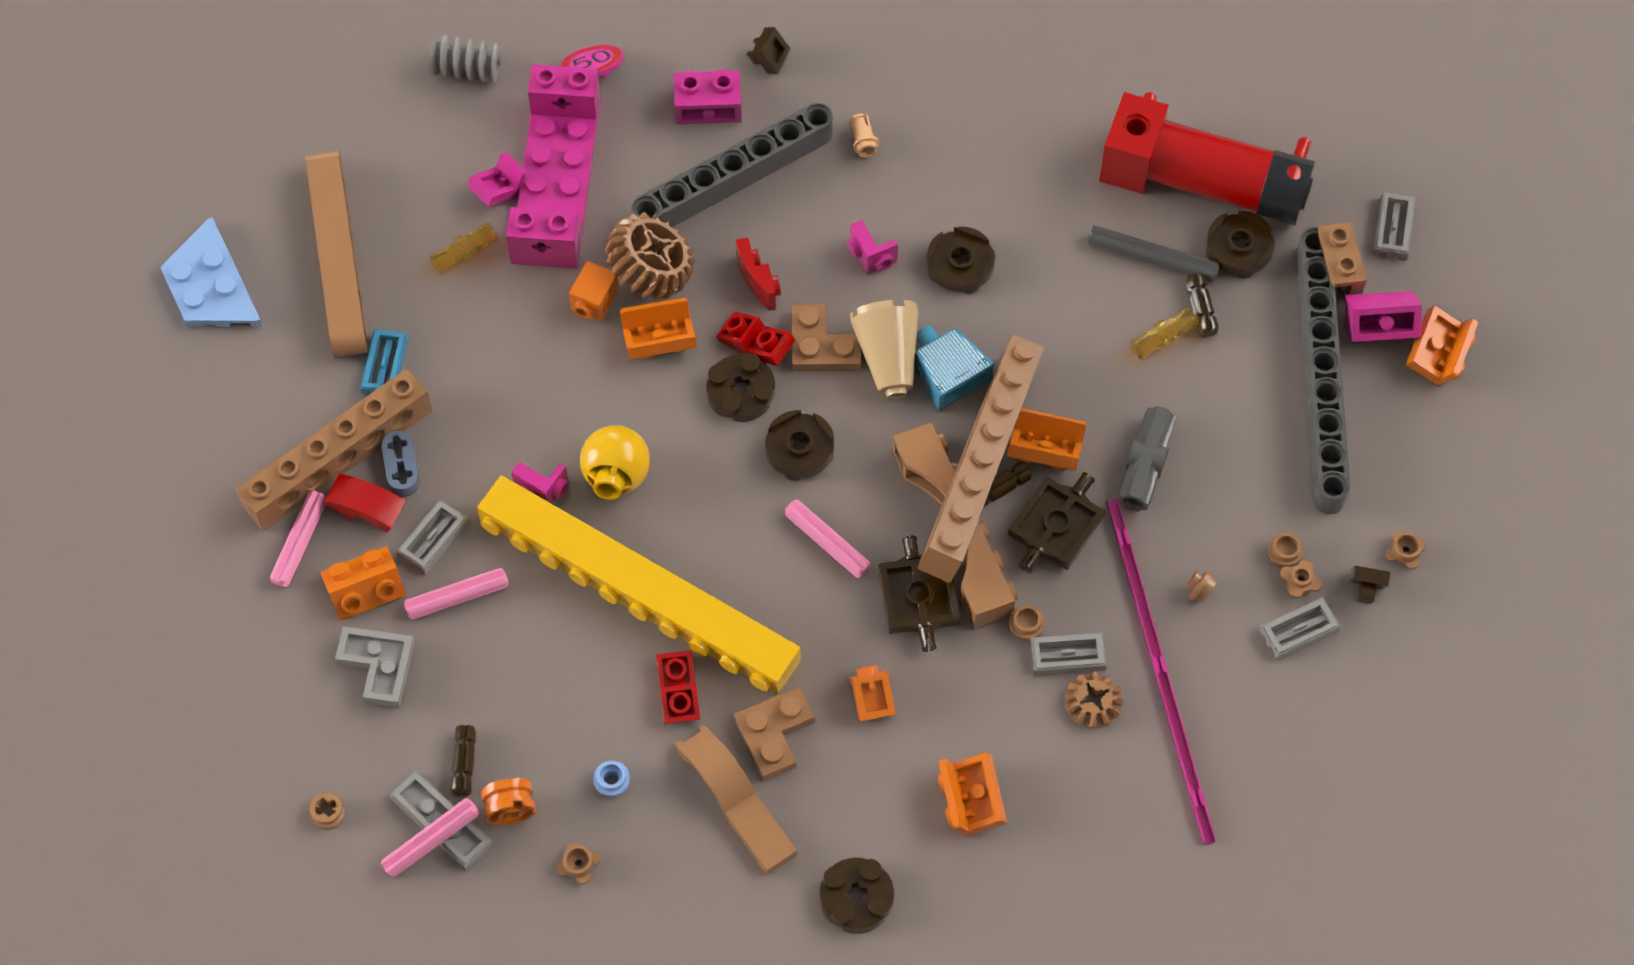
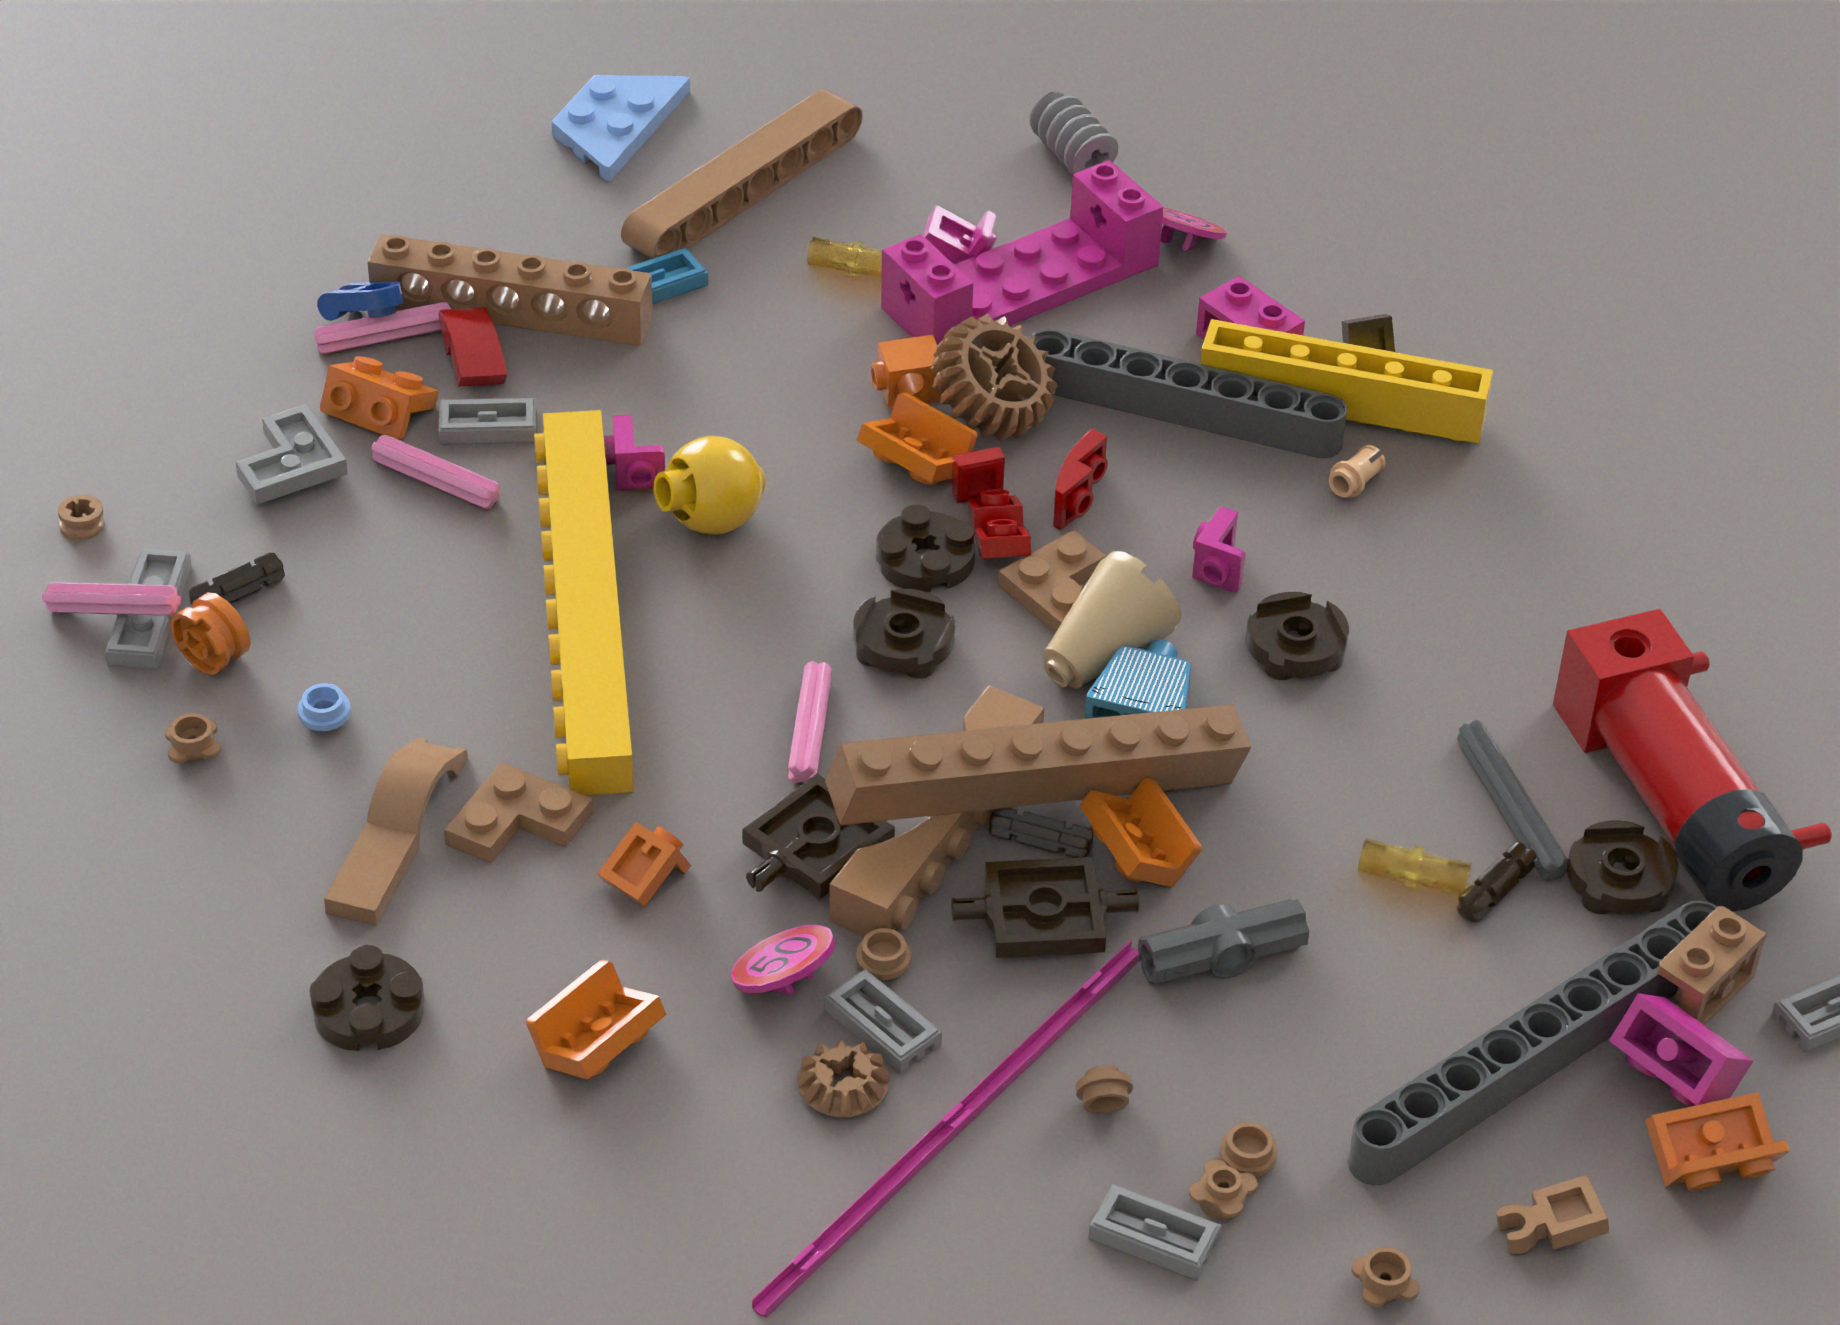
camera: 50 degrees right, 20 degrees down
(272, 535) = (374, 297): none -> blue plate
(393, 464) = (549, 351): sand blue beam -> none
(678, 687) = (498, 702): red slope -> none
(710, 319) = (977, 472): none -> red tile
(802, 84) = (1373, 383): none -> yellow brick
(999, 672) = (783, 959): none -> piece
(1368, 580) = (1290, 1258): dark brown tile -> none
(1430, 445) = (1561, 1212): none -> medium nougat plate

